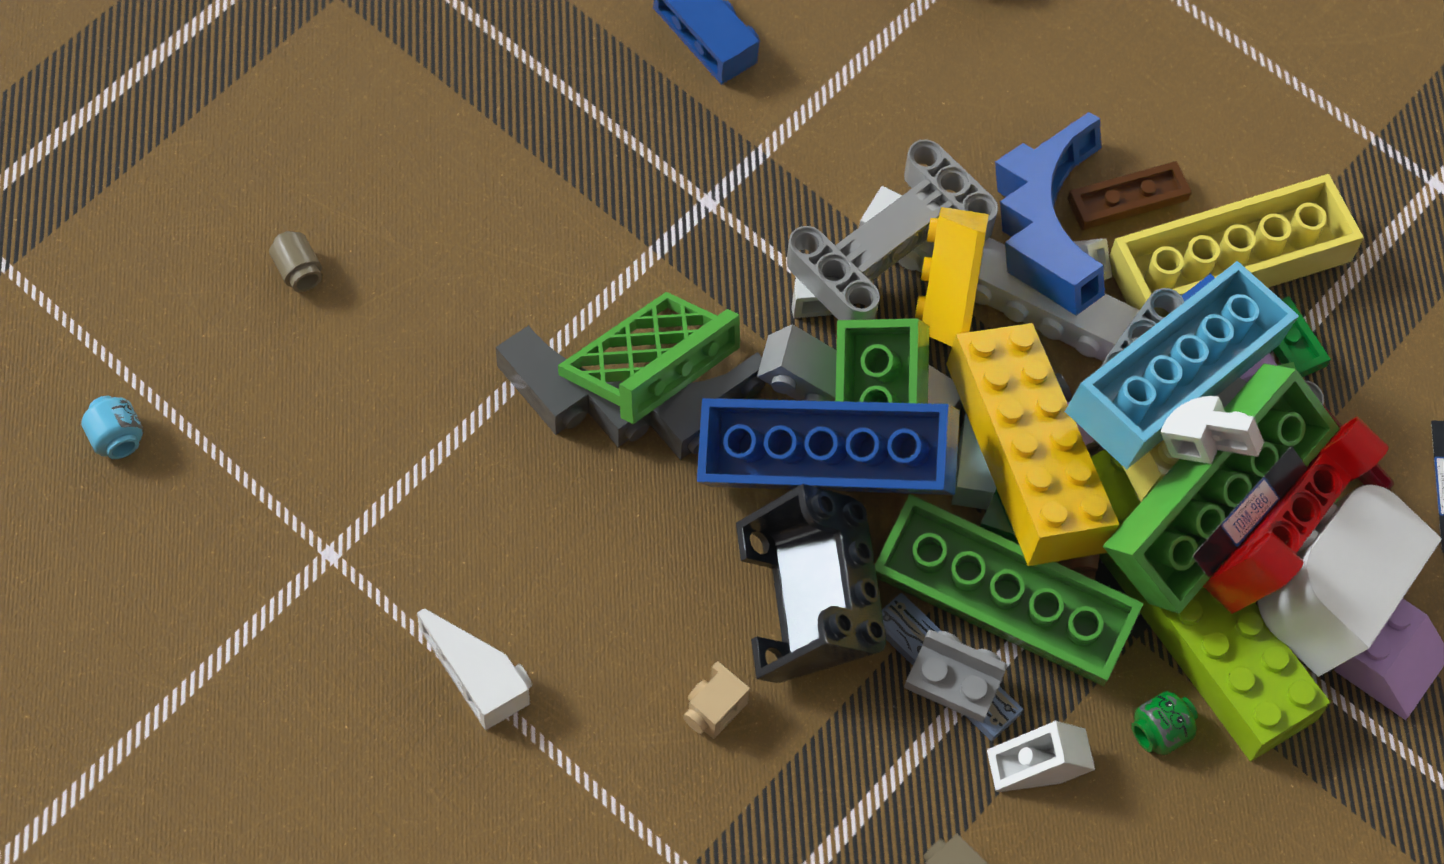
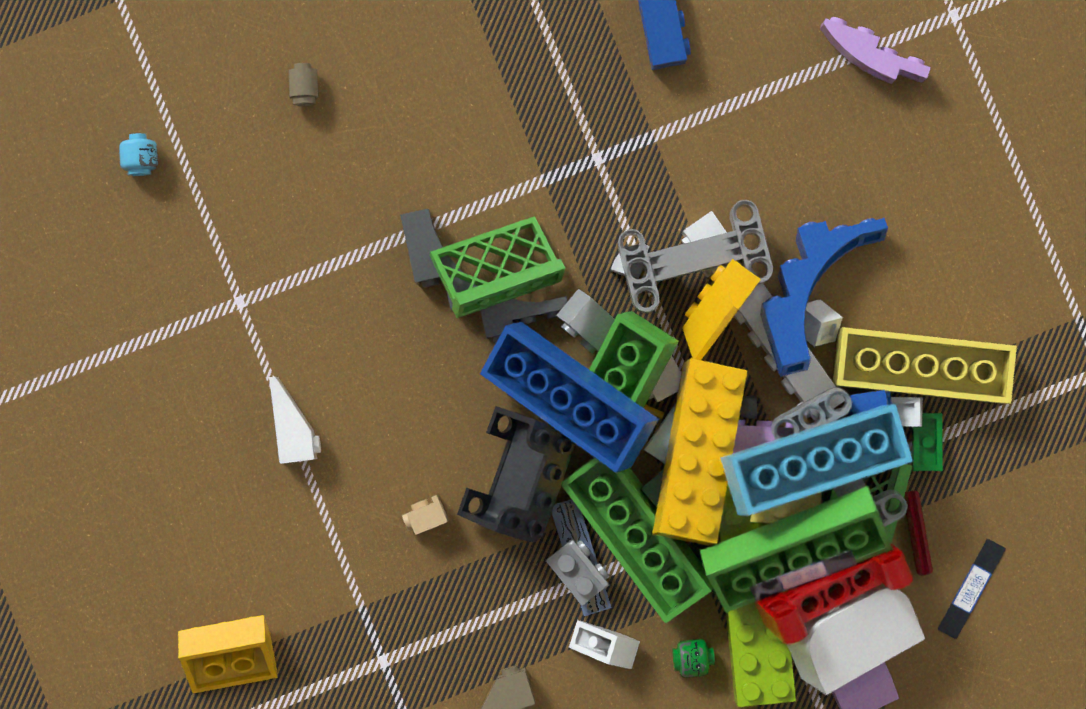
camera: 35 degrees right, 25 degrees up
(1129, 195) = (880, 287): reddish brown plate -> none
(1204, 427) = (794, 521): white brick -> none

